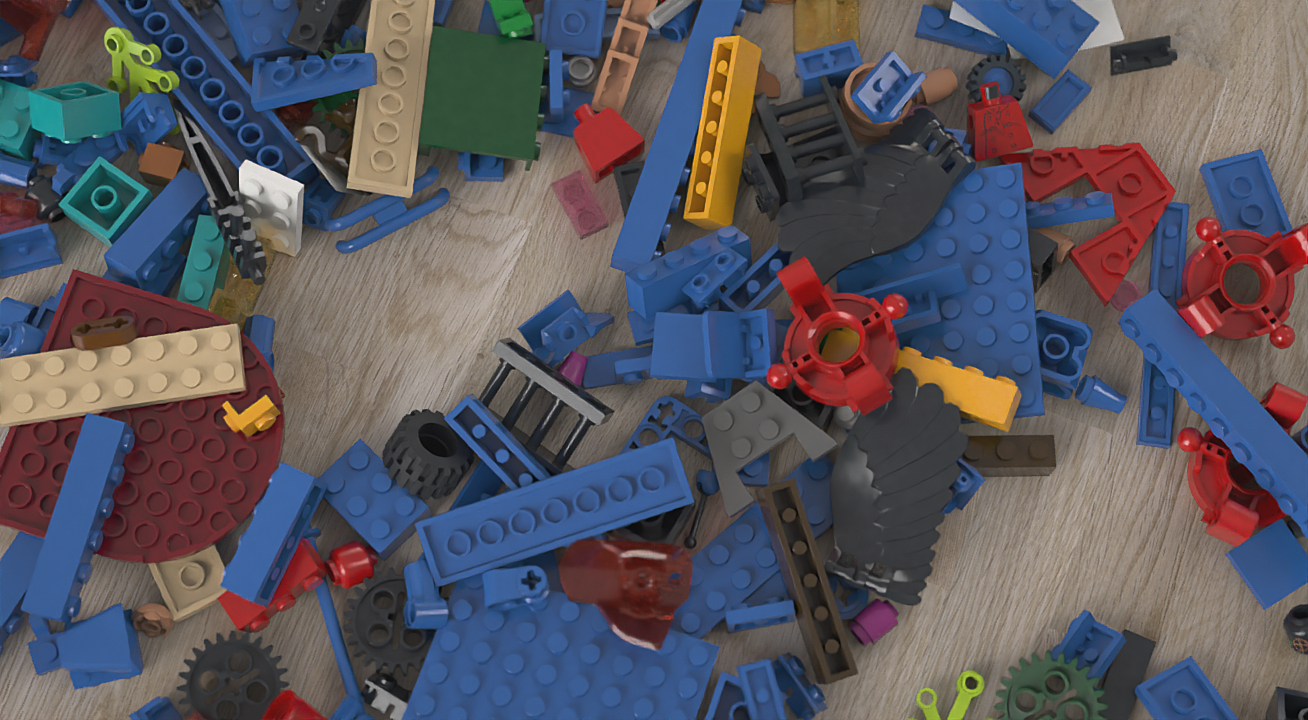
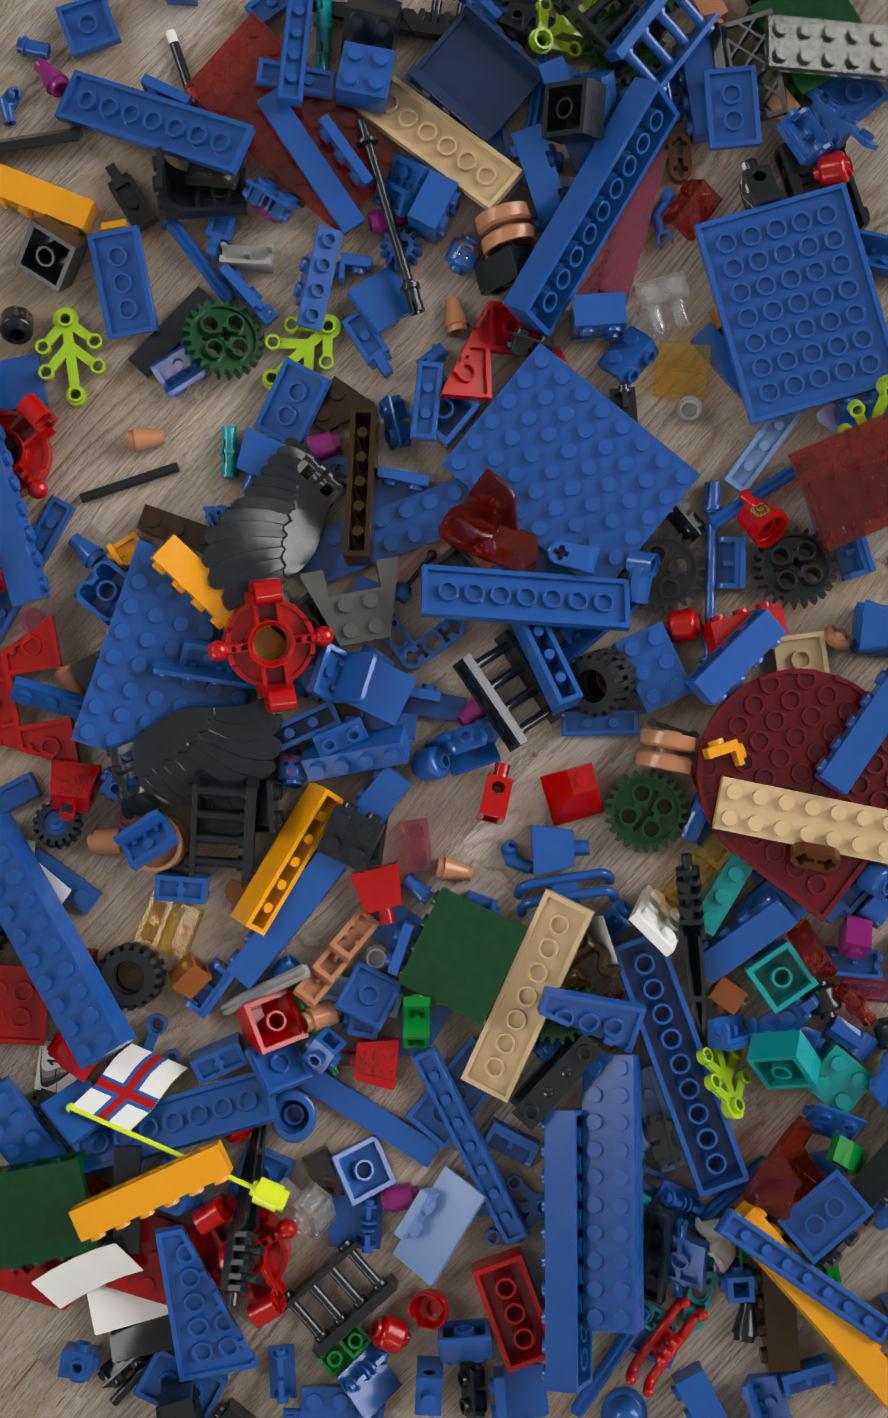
camera: 155 degrees left, 15 degrees up
(30, 275) = (855, 937): none -> magenta brick
(76, 239) = (811, 950): none -> clear red bracket
(297, 330) = (666, 822): none -> dark green gear
(297, 443) = (652, 722): none -> clear smoke hinge
(316, 662) = (730, 563): none -> blue hinge
(322, 403) = (666, 750): none -> nougat wheel
(384, 423) = (617, 723): none -> blue tile
(418, 254) = (555, 849): none -> blue torso
(420, 325) = (572, 794): none -> red slope
(464, 229) = (512, 858): none -> blue arm
(508, 274) = (492, 804): none -> red torso
(531, 191) = (451, 869): none -> nougat cone
(561, 158) = (418, 889): none -> blue pin
(598, 295) = (430, 764): none -> blue head
(658, 175) = (351, 835): none -> black plate
(761, 233) = (290, 769): none -> blue head
(878, 682) = (337, 405): none -> dark brown wing
(932, 658) = (292, 402): none -> blue plate
(951, 580) = (254, 454): none -> blue torso
(984, 574) = (229, 452): none -> teal pin
(1059, 406) = (123, 550): none -> light orange bracket
(1086, 495) = (129, 482): none -> black bar
(1093, 551) = (143, 438): none -> nougat cone
(1228, 624) = (70, 352): none -> lime plant

